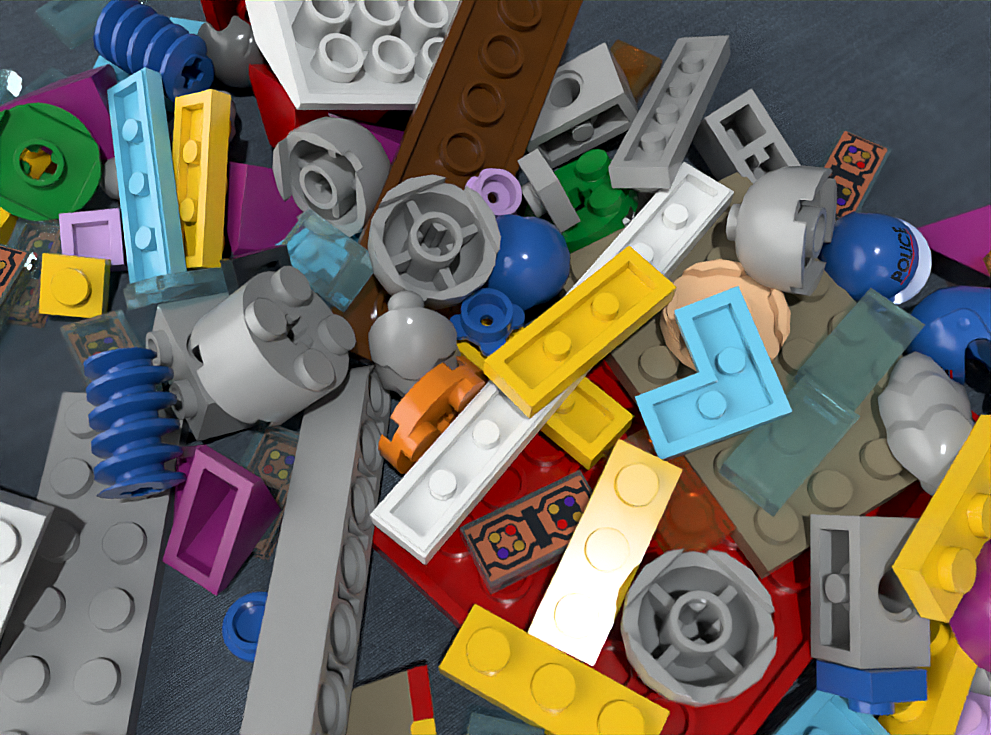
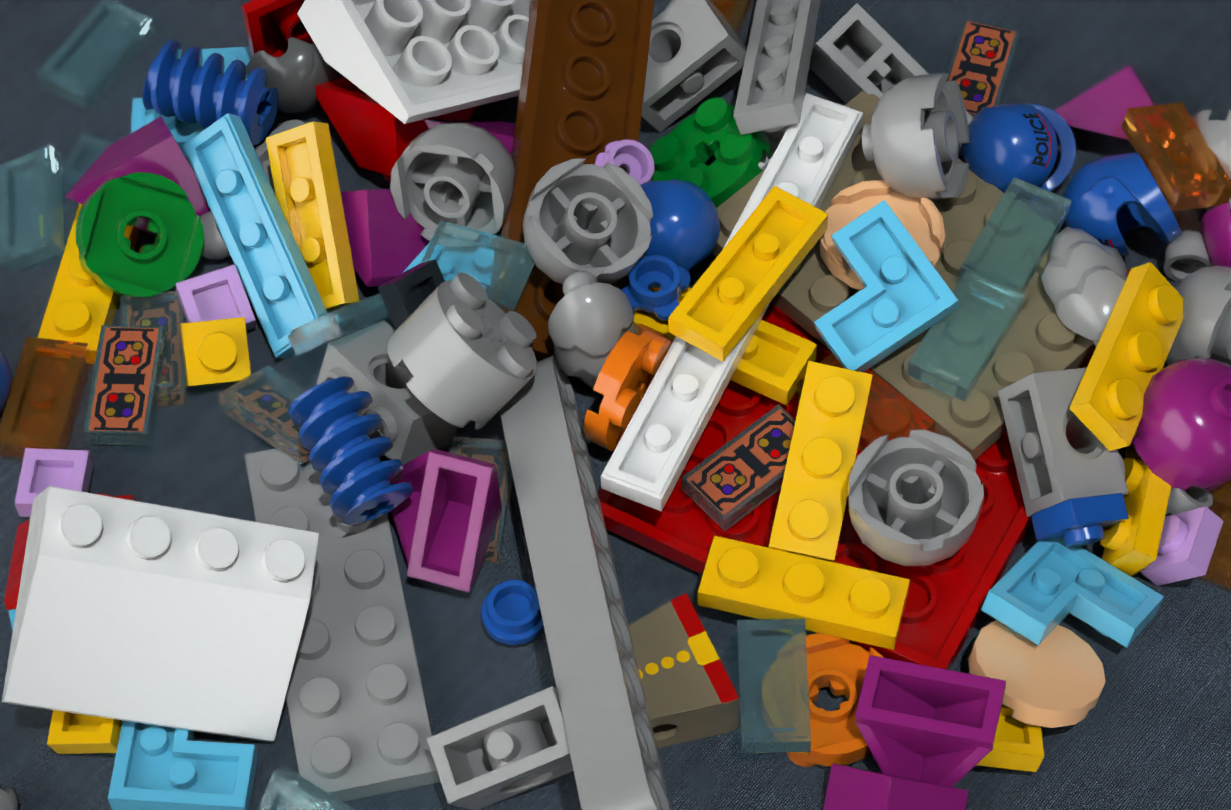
camera: 10 degrees left, 5 degrees down
(545, 192) = (675, 152): light grey plate -> none

